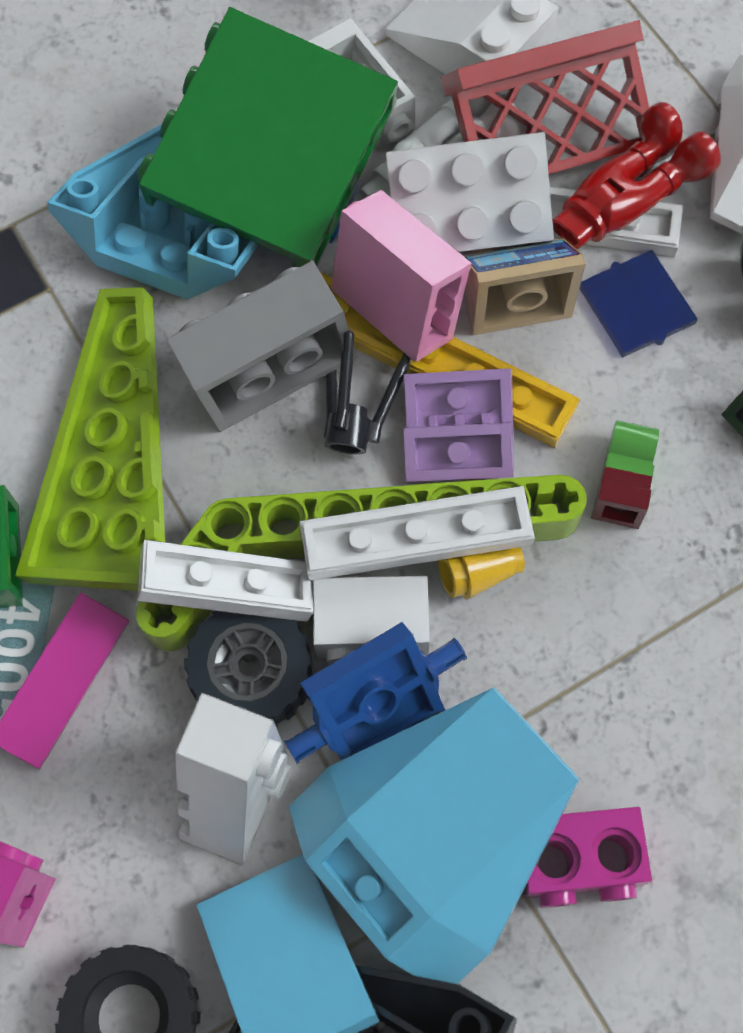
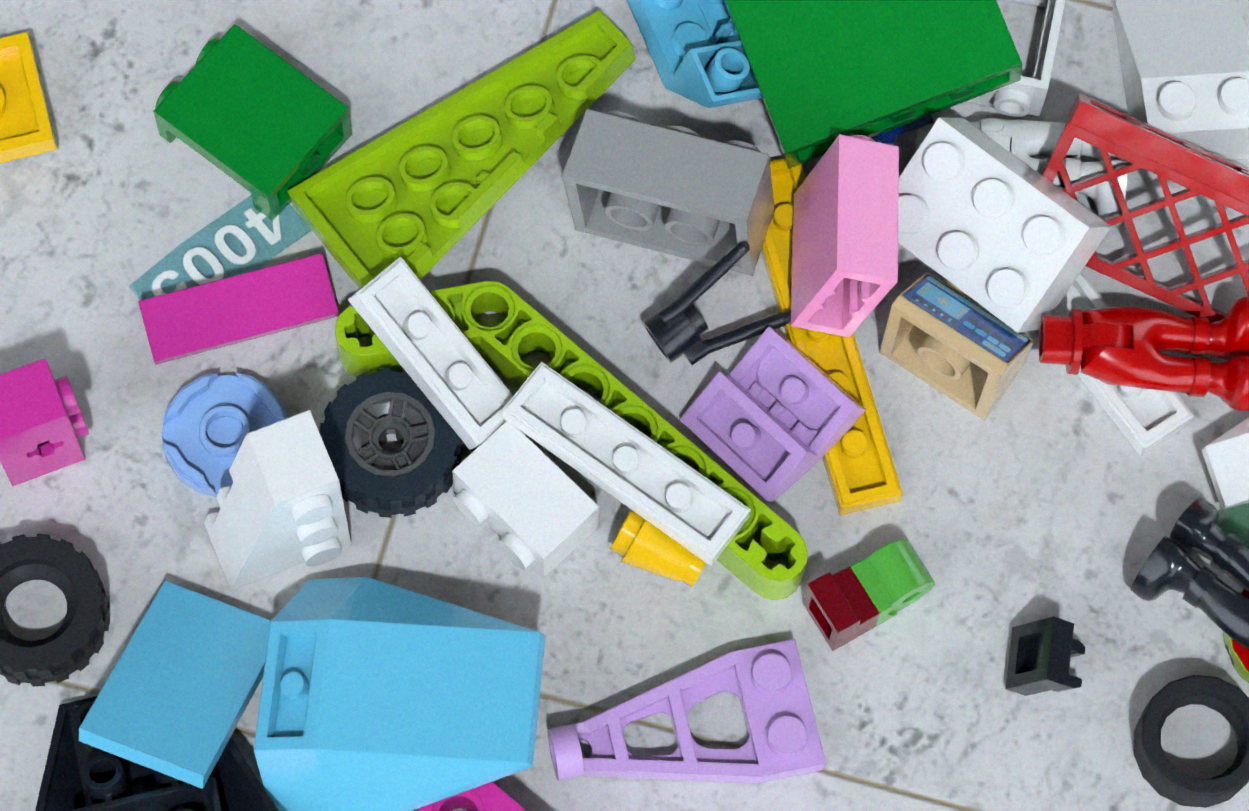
camera: 40 degrees right, 0 degrees up
(130, 769) = (209, 424): none -> light blue tile
(373, 693) = (456, 552): blue plate -> none
(637, 303) = (1055, 463): clear blue piece -> none
(649, 596) = (775, 713): none -> lavender plate

